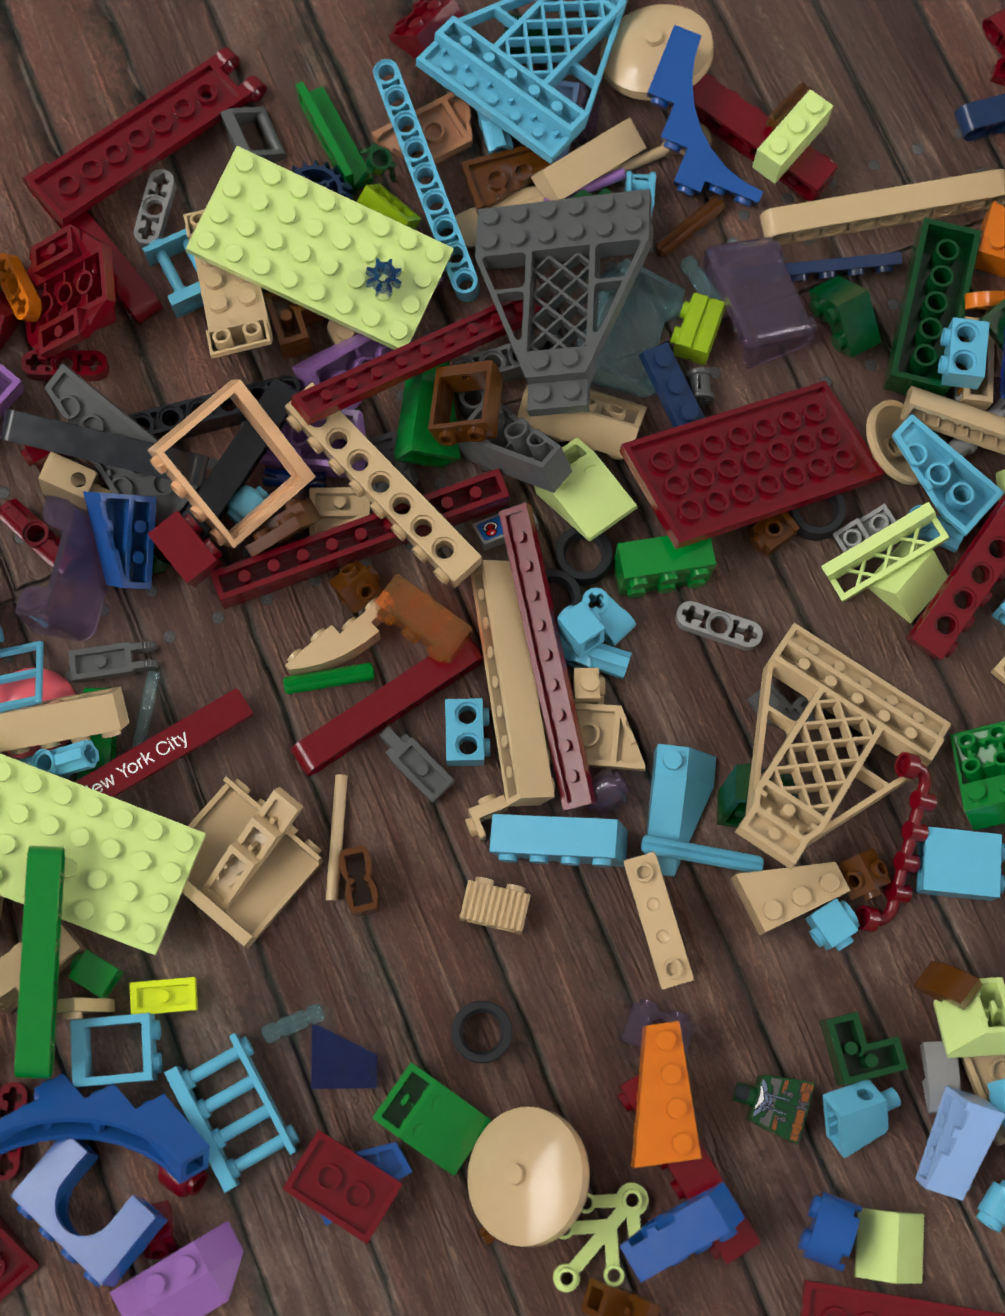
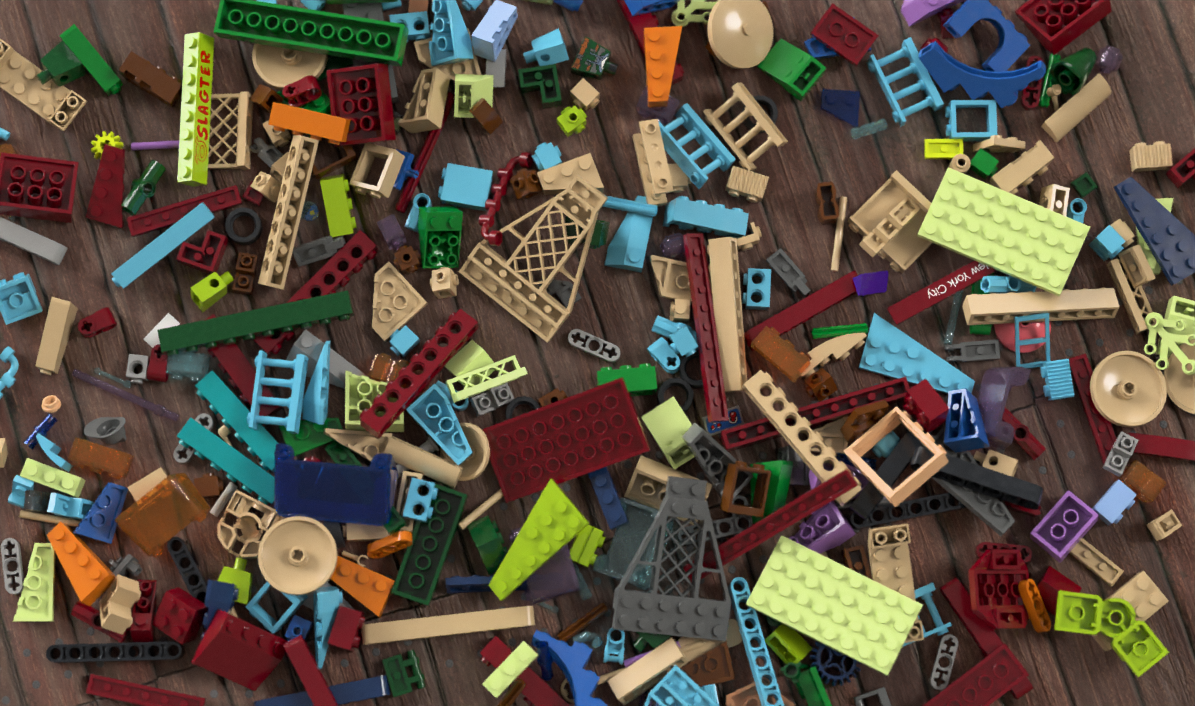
camera: 175 degrees left, 5 degrees up
(39, 962) = (1013, 164): green beam -> none
(142, 973) = (962, 159): none -> tan brick
(225, 643) = (899, 356): none -> medium azure wing
(280, 753) = (871, 283): none -> dark purple slope
(383, 286) = (792, 571): gear -> none
(494, 1031) = (763, 123): none -> tan fence
(563, 971) = (704, 136): none -> medium azure fence
(611, 908) = (679, 178): none -> tan brick
(679, 206) = (589, 637): none -> clear light blue arm
(697, 376) = (589, 505): dark grey bush -> none
(741, 164) = (545, 660): none -> clear blue pin
(768, 317) = (544, 533): none -> lime wing
(783, 1039) = (585, 95): none -> tan brick
(811, 988) = (567, 125): none -> lime brick
(863, 365) = (481, 509): none -> tan bar
(947, 137) = (398, 676): none -> dark green plate
(972, 701) = (444, 283): none -> tan brick

